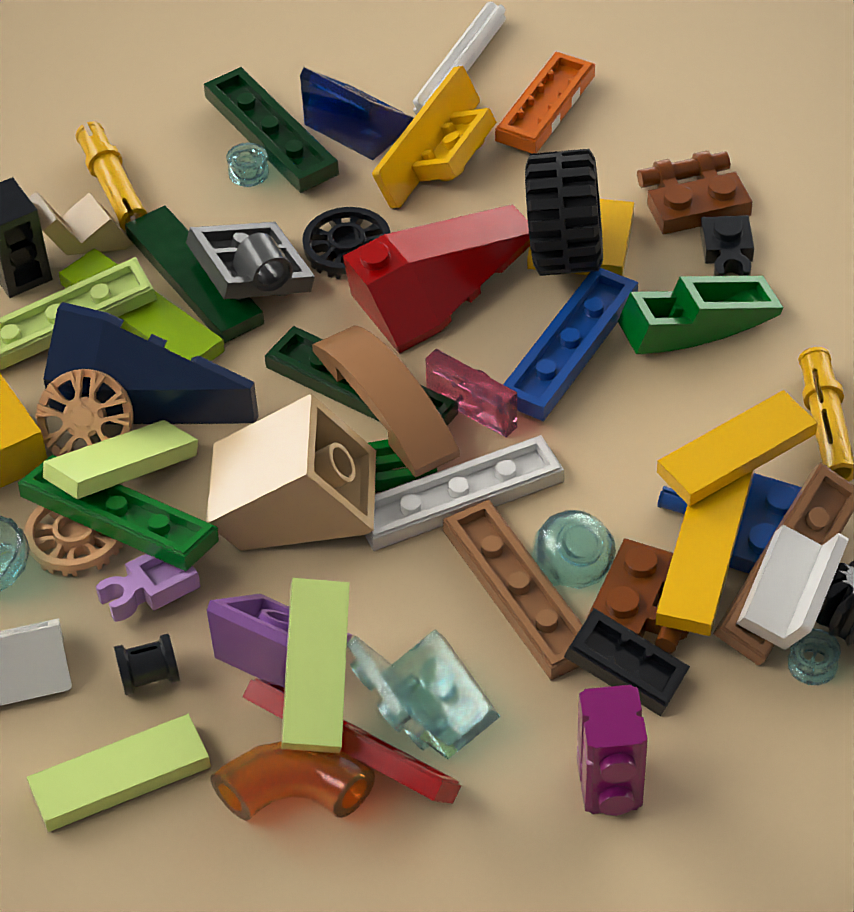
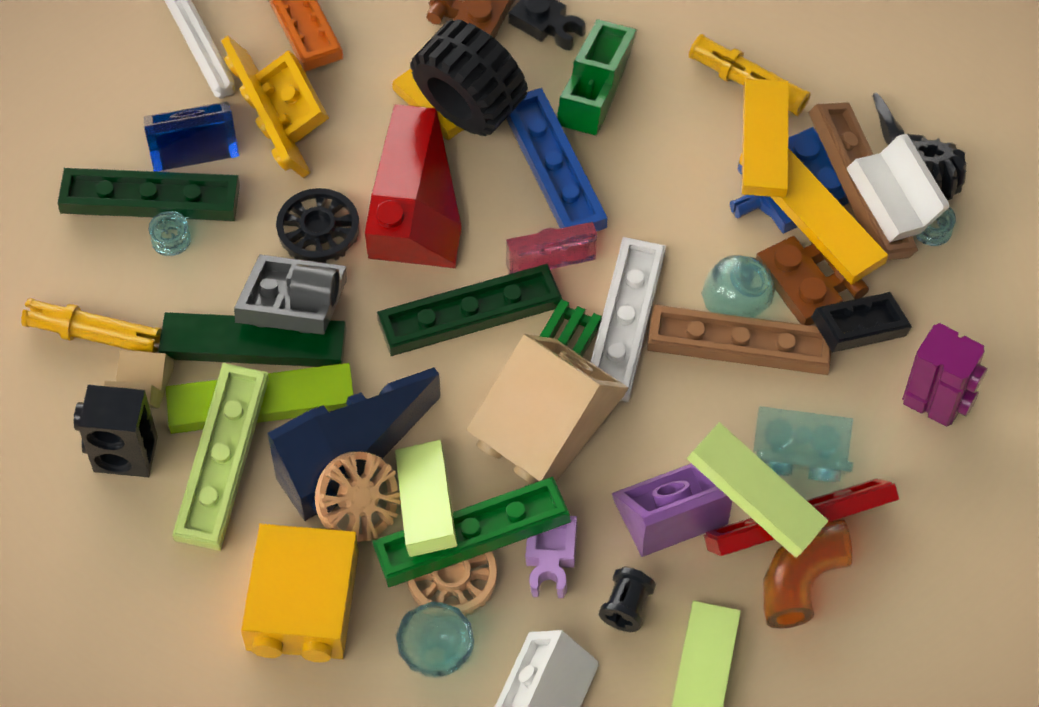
camera: 55 degrees left, 10 degrees up
(393, 396) = (510, 292): medium nougat slope -> none

